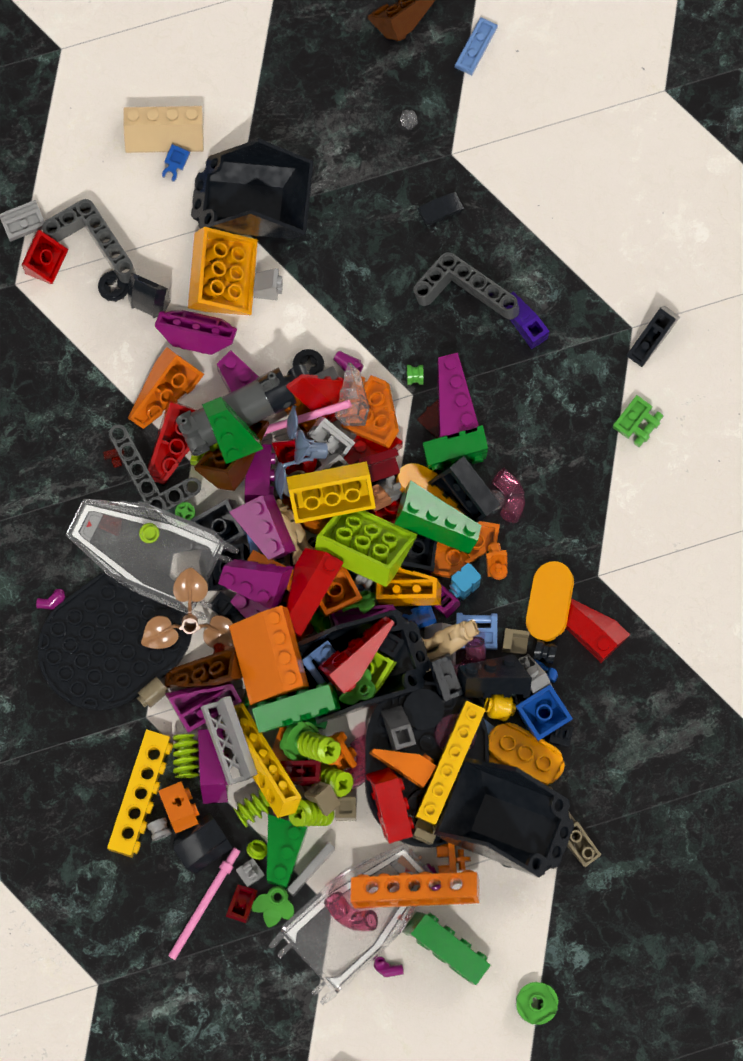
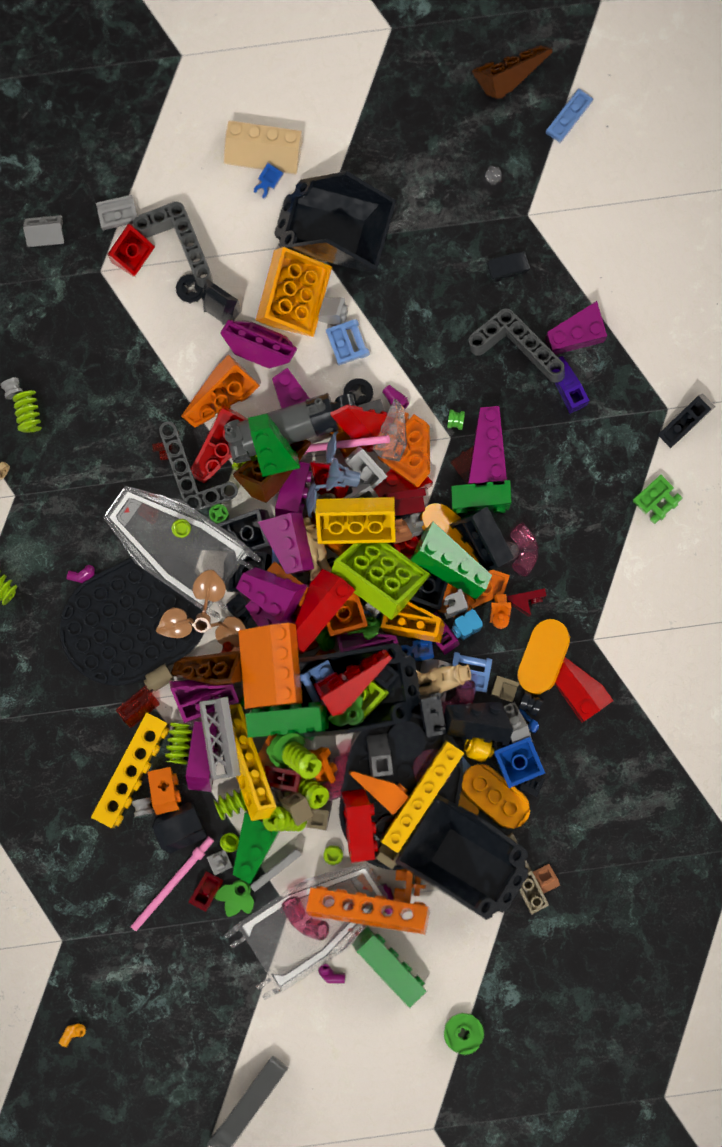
camera: 15 degrees right, 5 degrees up
(134, 727) = (136, 707): none -> clear red slope
(281, 316) = (341, 344): none -> medium blue plate
(367, 844) = (333, 855): none -> lime plate
(451, 562) = (456, 603): none -> light grey hinge
(516, 548) = (521, 600): none -> dark red slope
(525, 264) = (578, 331): none -> magenta wedge
(594, 828) = (546, 878): none -> nougat slope

